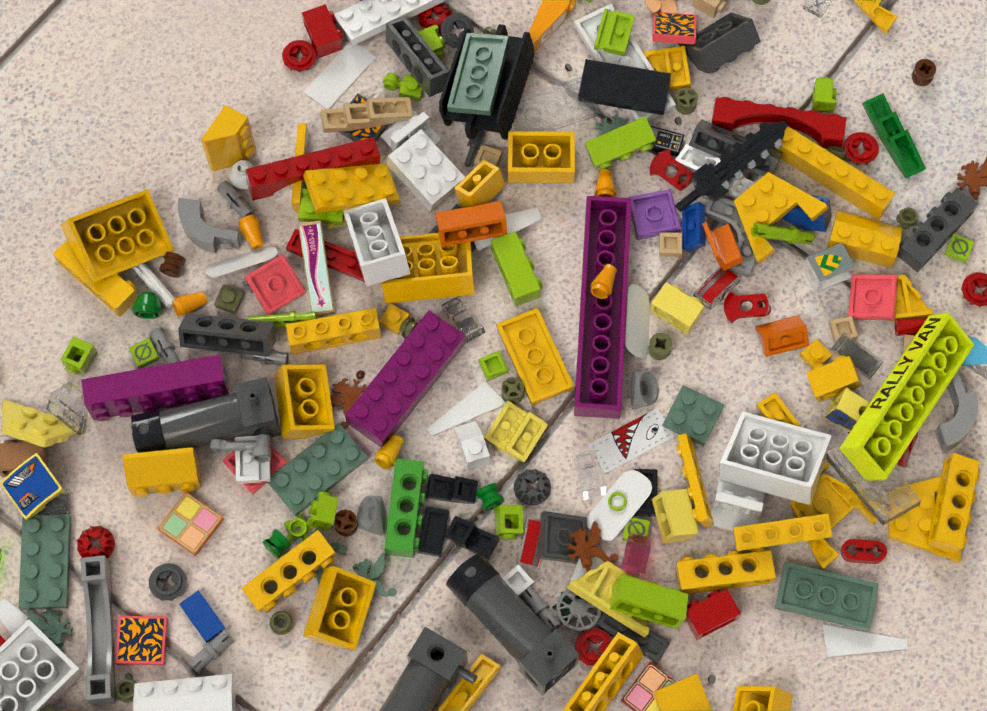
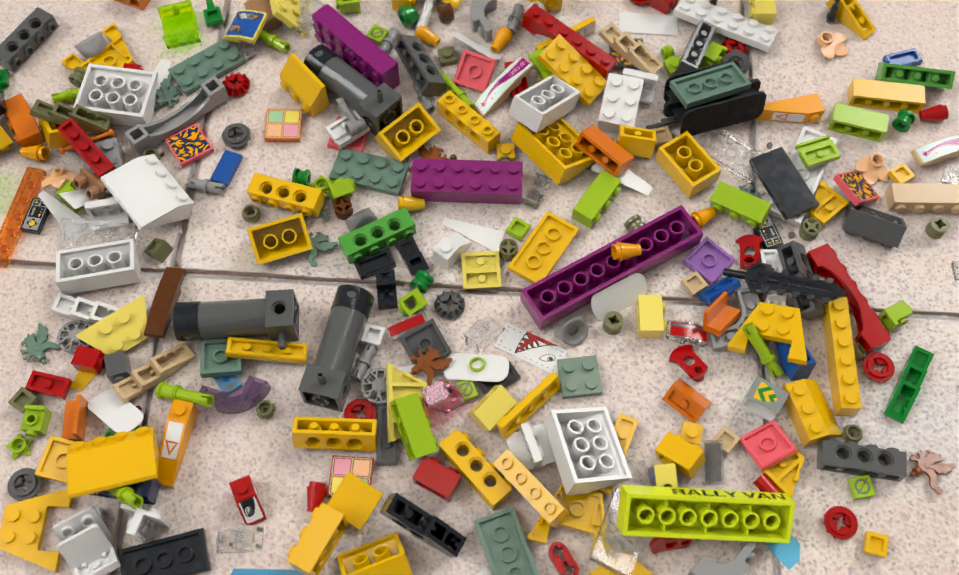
camera: 55 degrees right, 5 degrees down
(72, 467) = (274, 42): none -> lime pin
(571, 253) = (633, 222): none -> olive wheel
(752, 654) = (423, 525): none -> black brick

